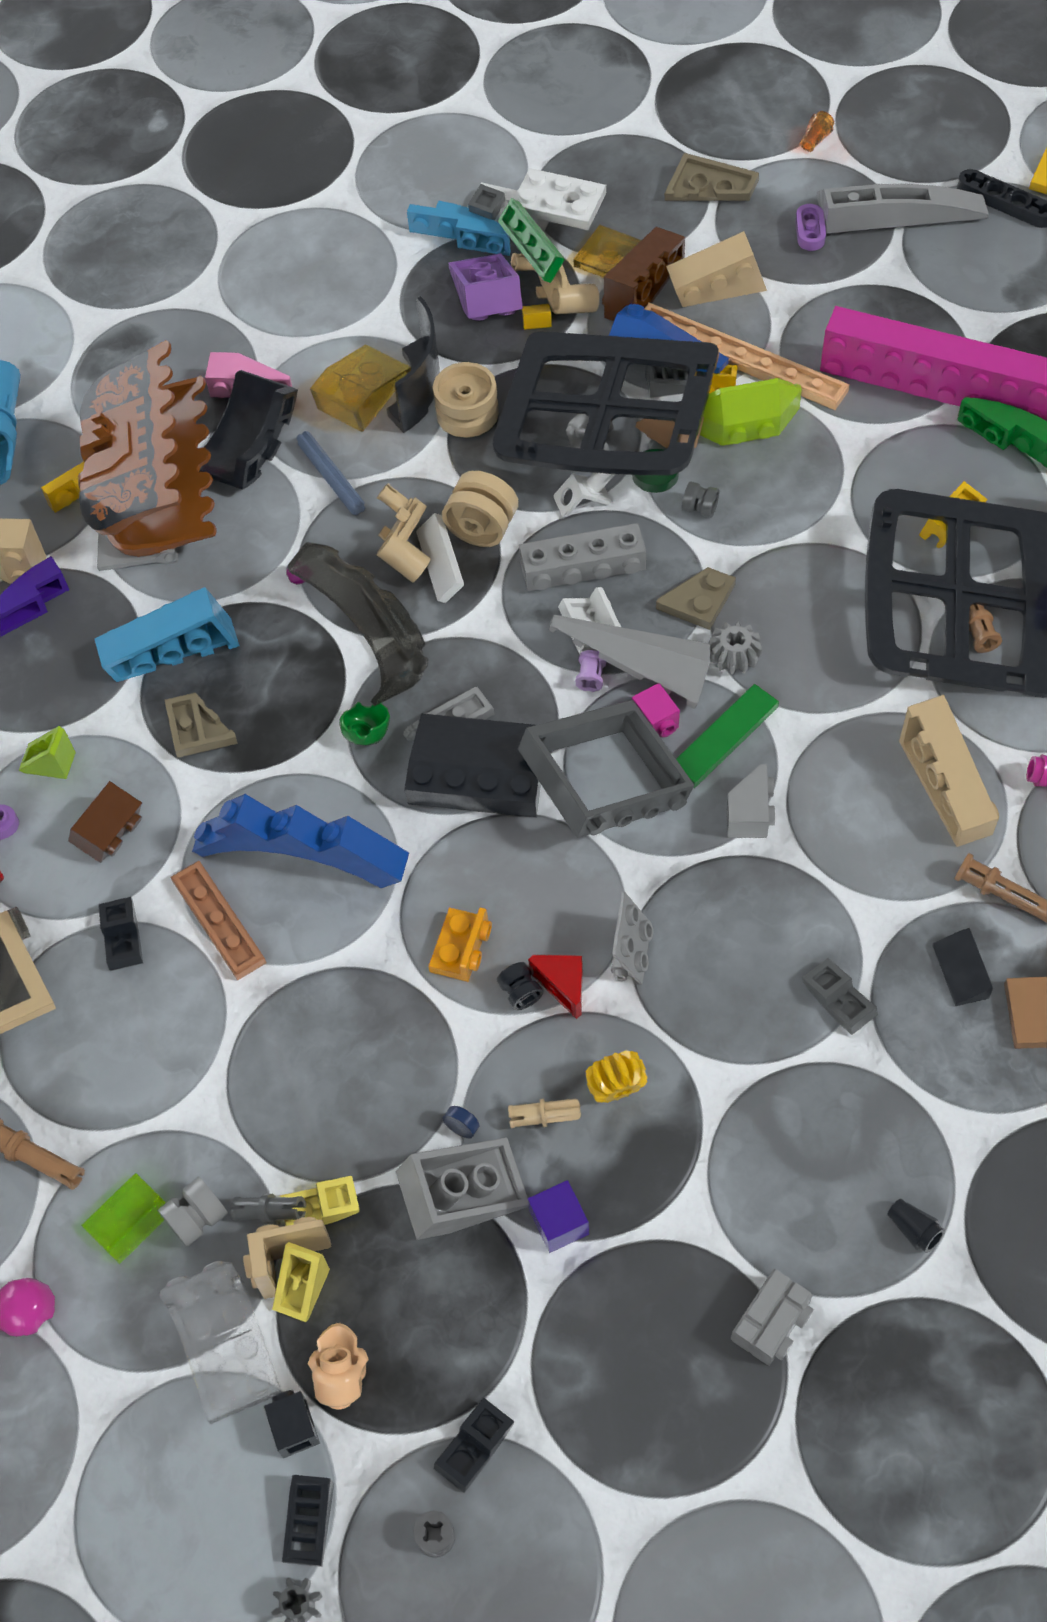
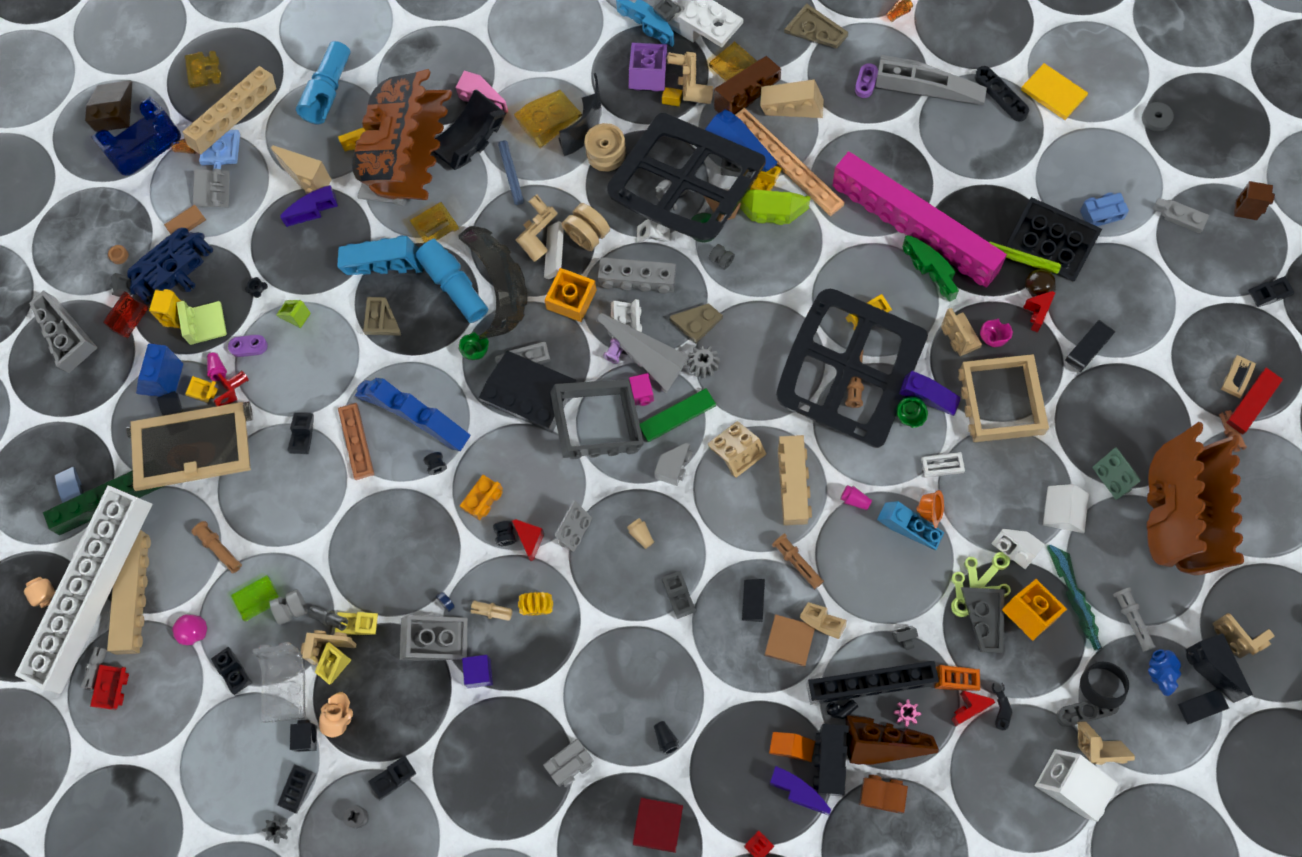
camera: 20 degrees right, 10 degrees up
(105, 822) = (311, 364): reddish brown brick -> none
(122, 1353) = (231, 670): none -> black slope
(230, 566) = (432, 219): none -> clear yellow plate
(280, 628) = (445, 271): none -> dark azure piece
(364, 913) = (435, 463): none -> black wheel
(492, 609) = (570, 294): none -> light orange brick
(531, 240) = (680, 47): green tile -> none
(741, 920) = (640, 532): none -> tan cone
(843, 750) = (738, 448): none -> tan bracket
(963, 1372) = (658, 825): none -> dark red slope

